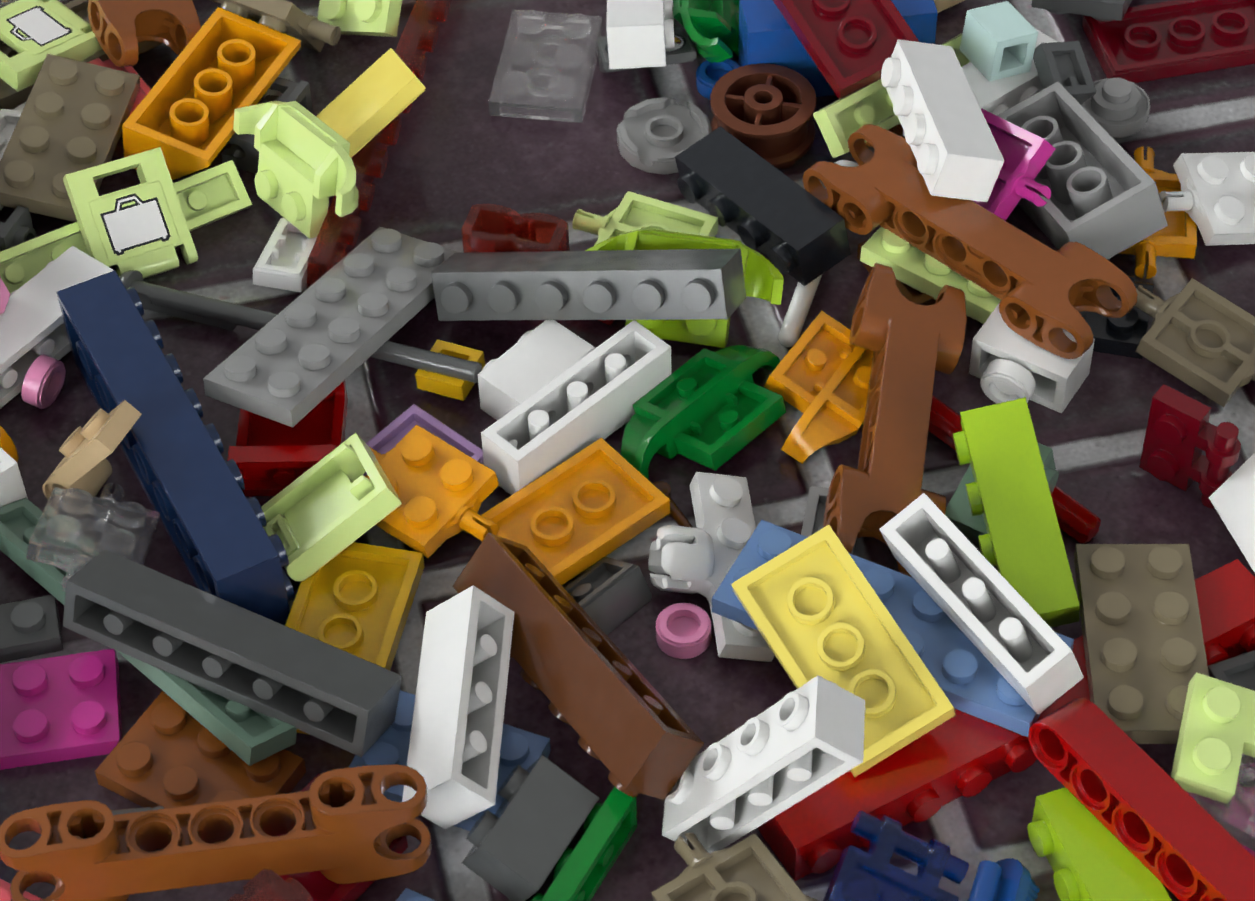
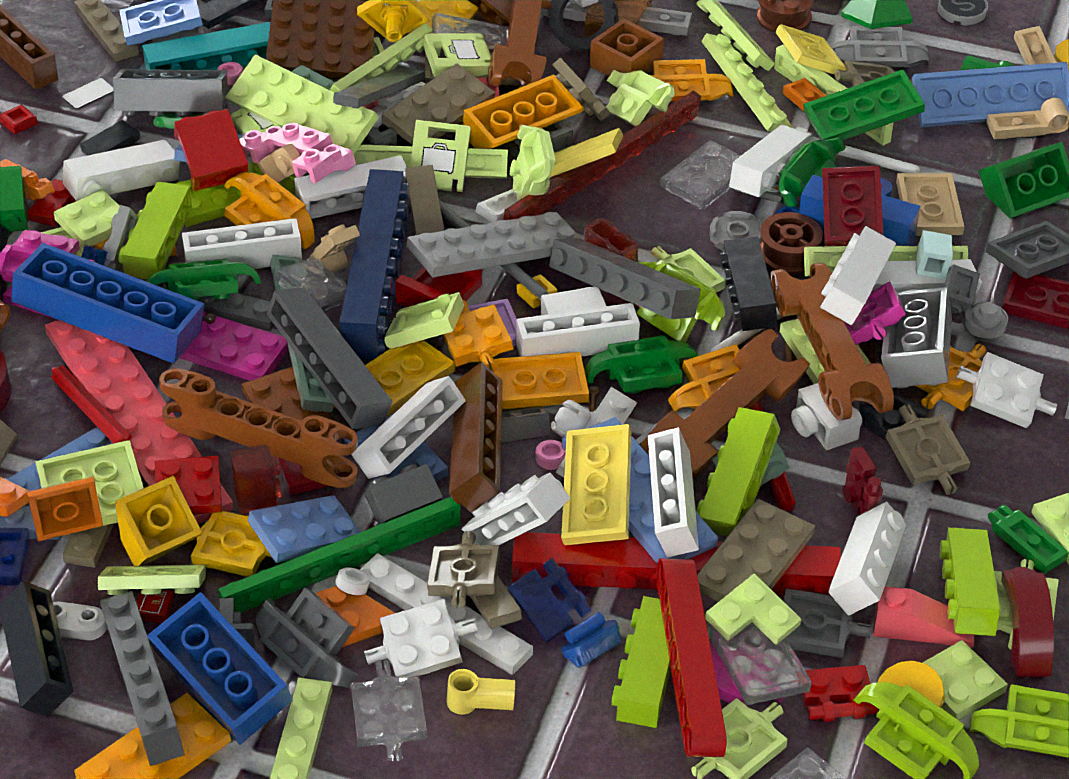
camera: 30 degrees right, 5 degrees down
(43, 381) = (346, 212): bright pink tile -> none
(179, 317) = (424, 199): none -> dark tan tile

